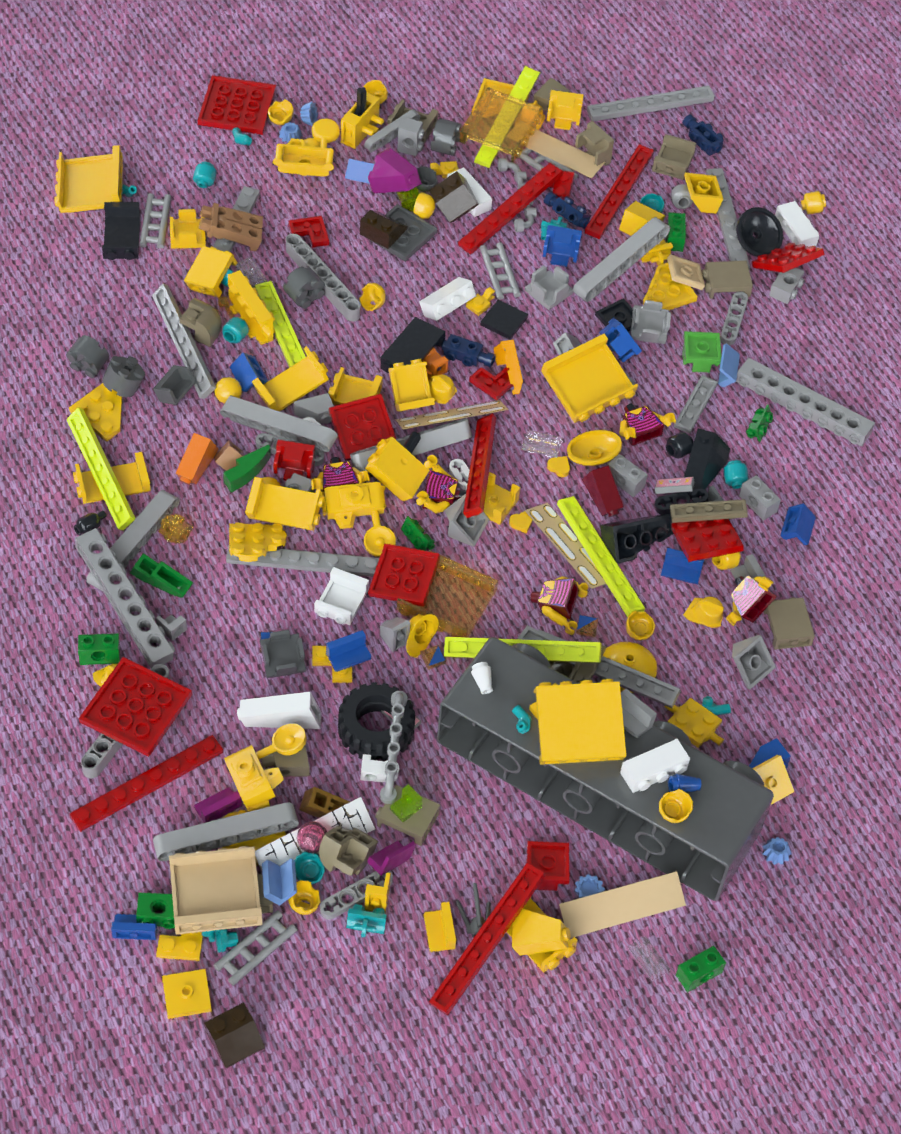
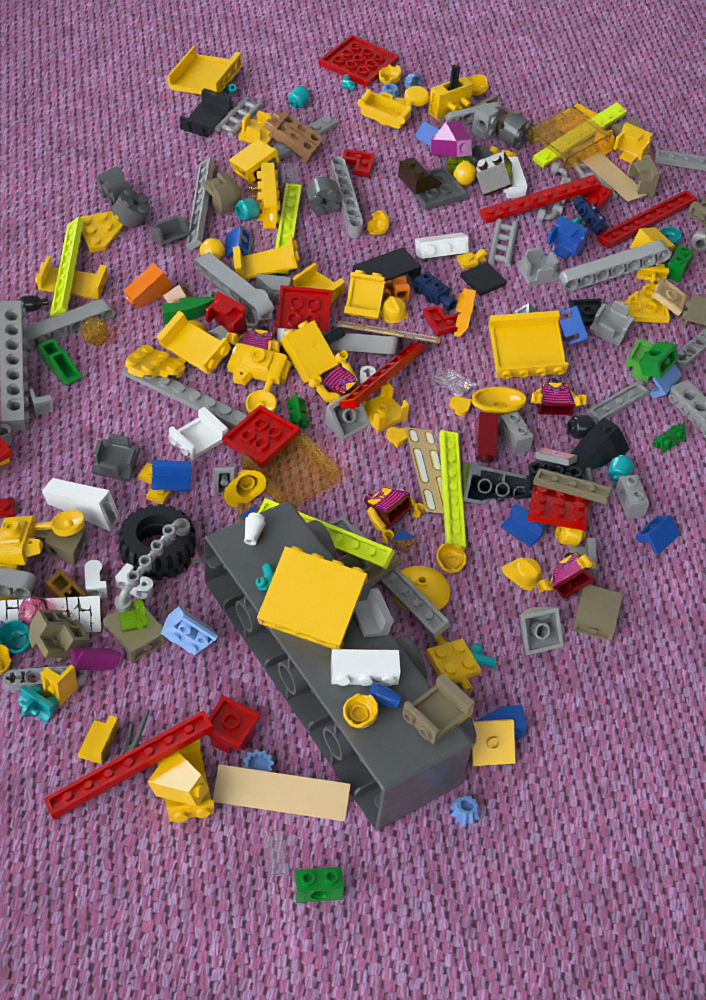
camera: 25 degrees right, 5 degrees down
(340, 784) = (93, 577): none -> white leg
(460, 795) = (188, 631): none -> light blue slope
(717, 349) = (658, 359): none -> green brick
(735, 776) = (439, 709): none -> dark tan panel

